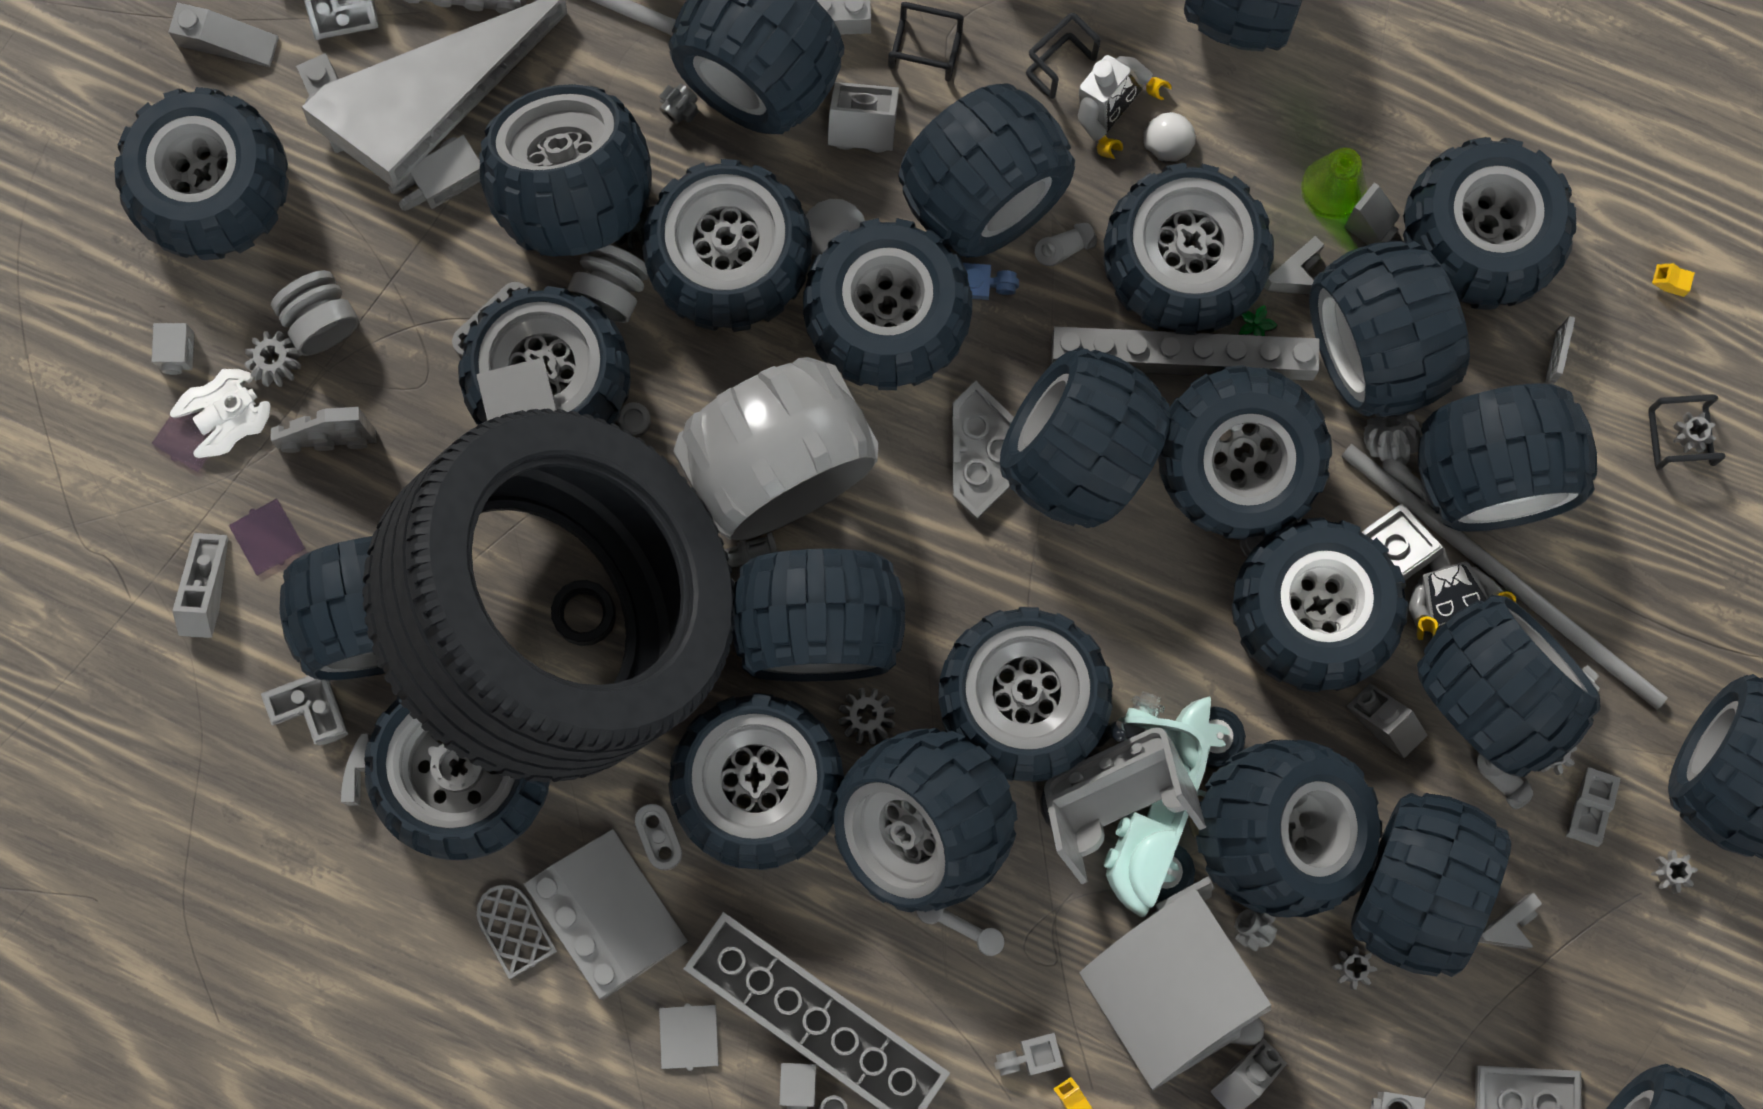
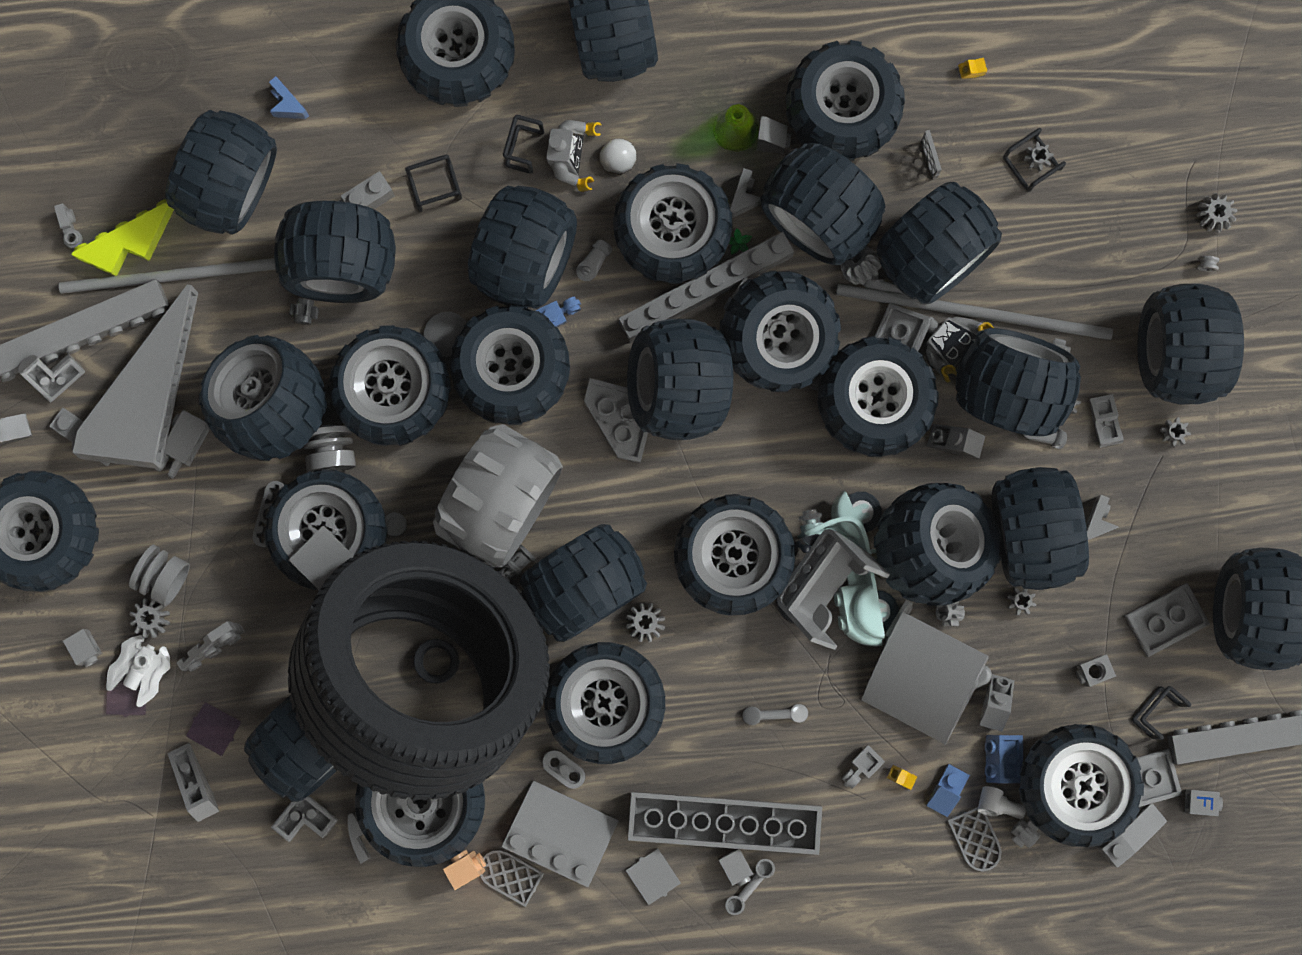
camera: 30 degrees left, 5 degrees up
(462, 884) = (464, 868): none -> light nougat brick
(863, 117) = (422, 252): light grey slope -> none
(924, 820) = (720, 668): black wheel -> none

